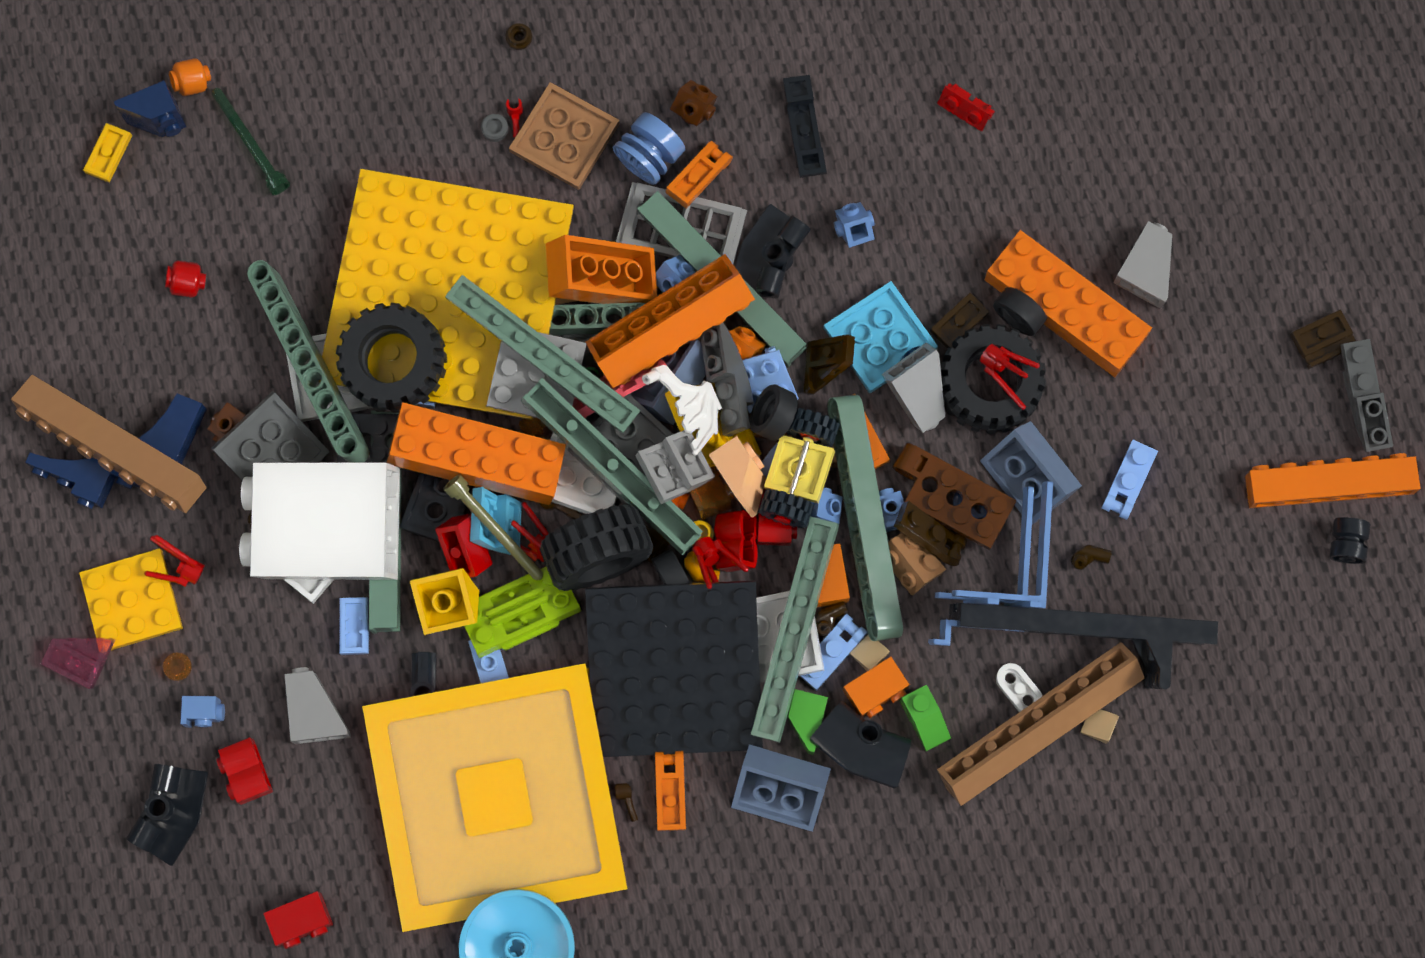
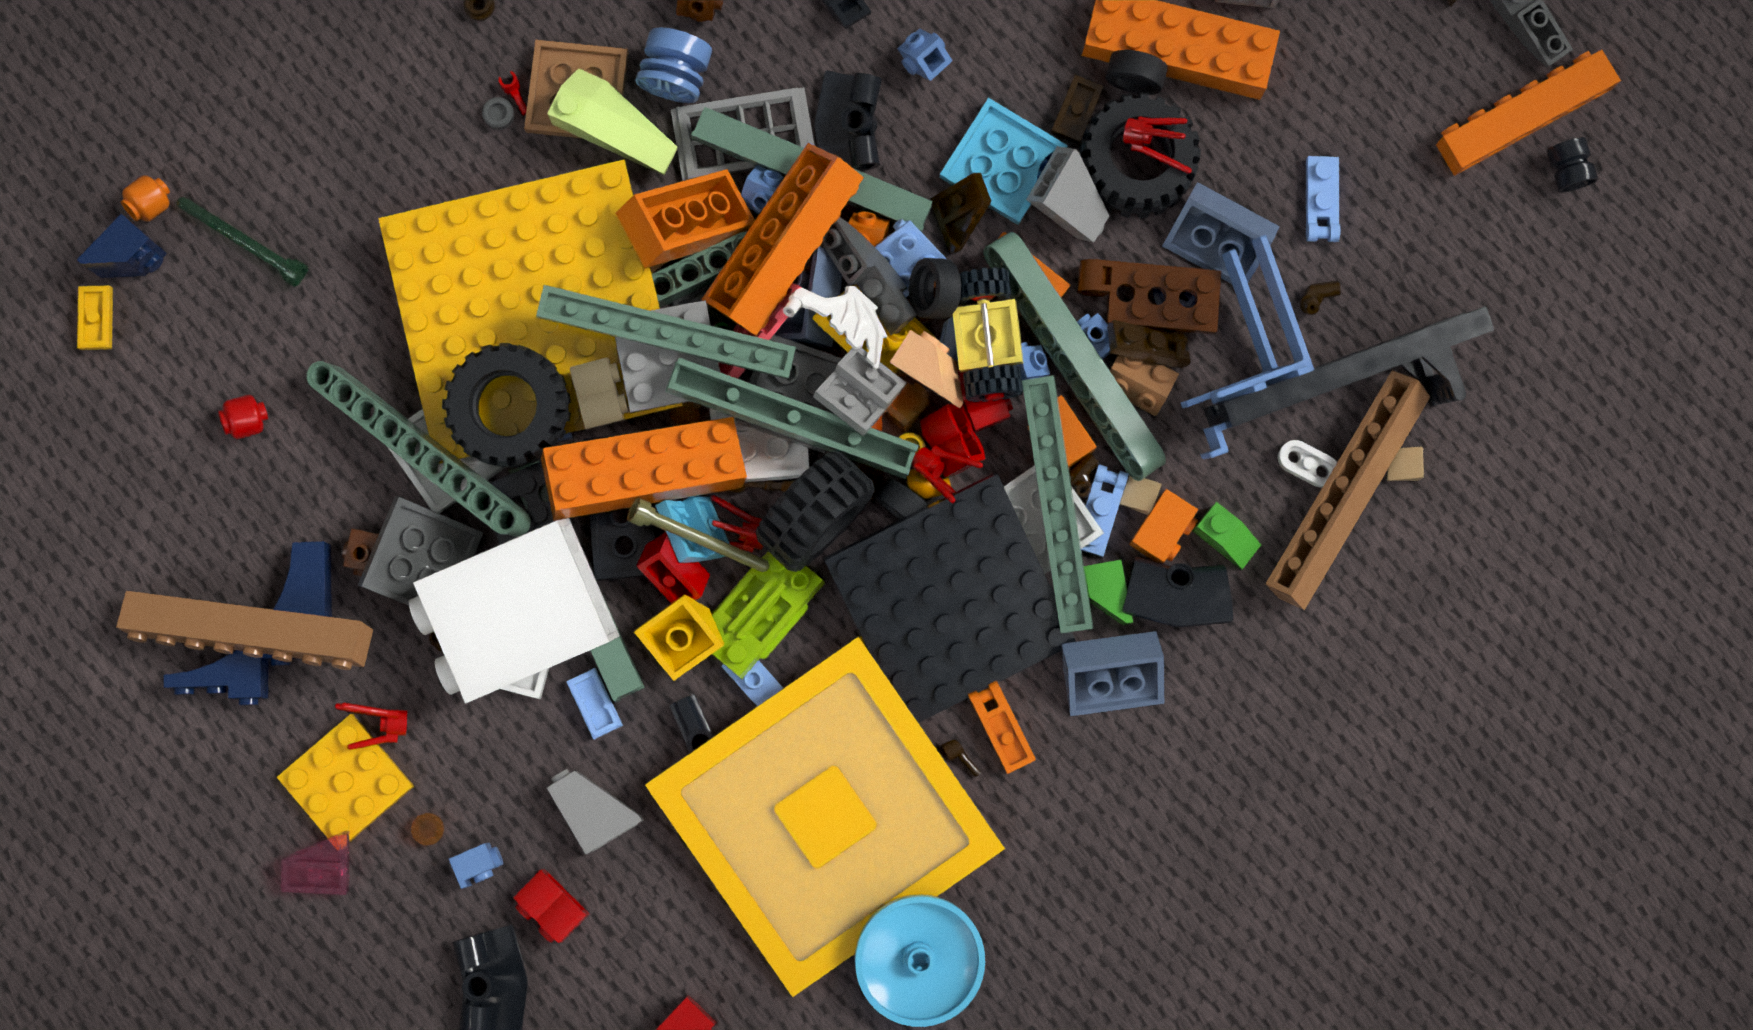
camera: 30 degrees left, 5 degrees up
(468, 379) = (598, 393): none -> dark tan brick
(575, 165) = (604, 117): none -> yellowish green wedge
(698, 174) = (737, 72): orange plate -> none

